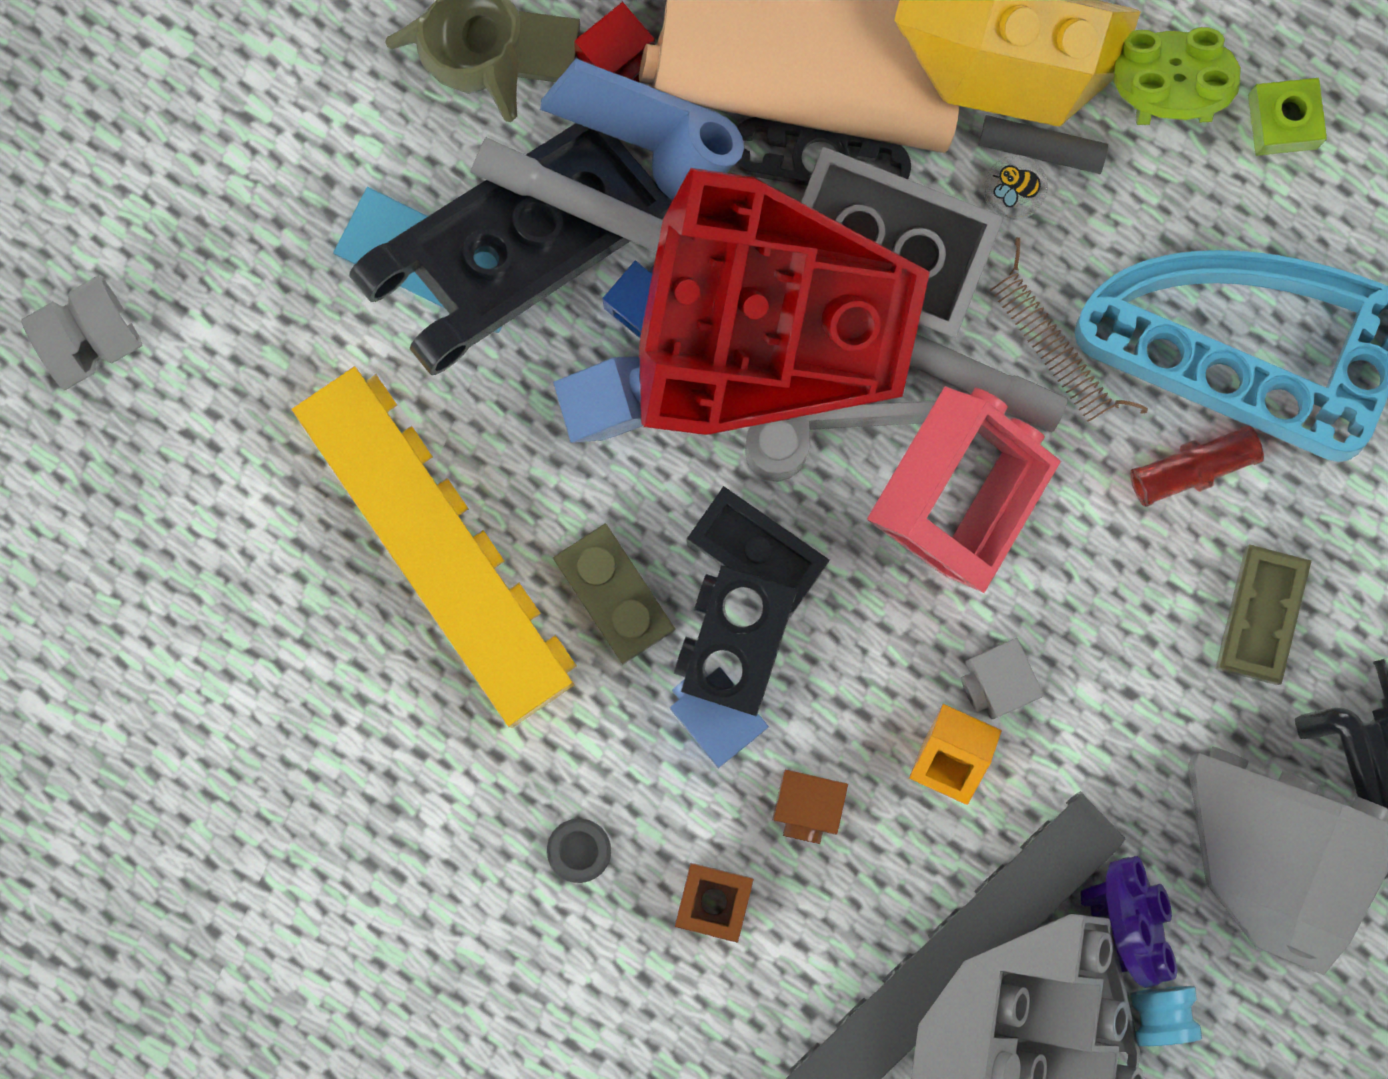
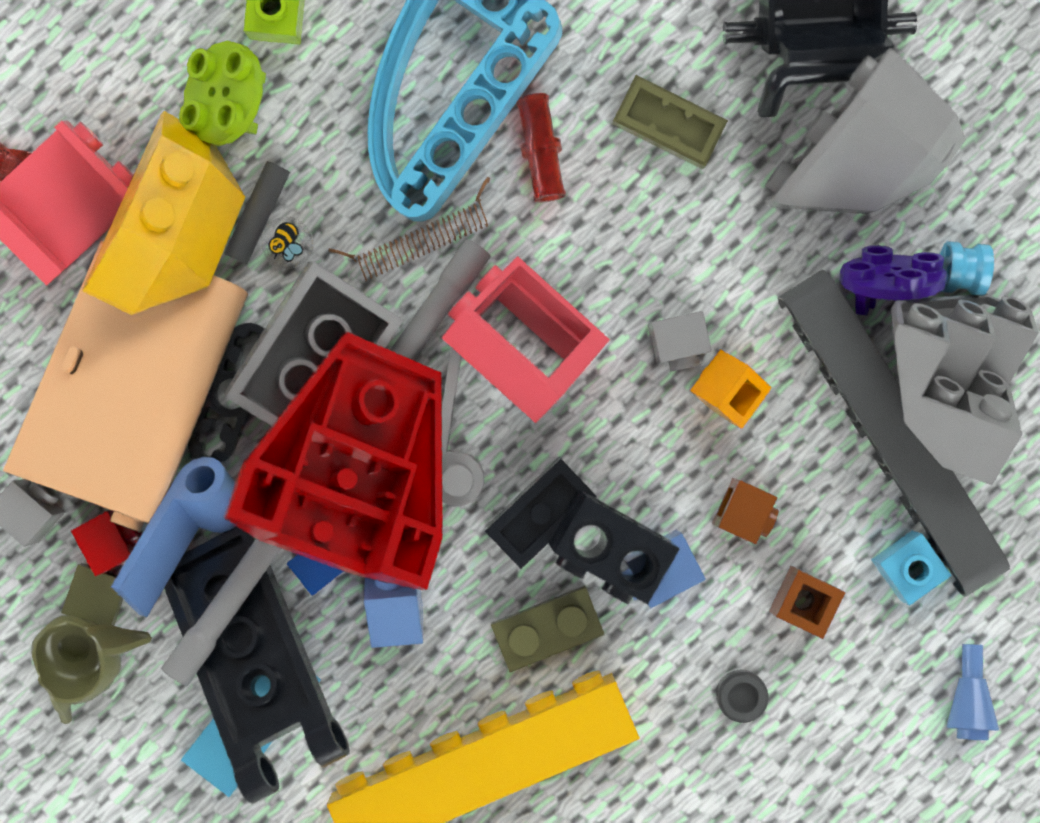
camera: 80 degrees left, 5 degrees up
(776, 1002) = (895, 562): none -> medium azure plate

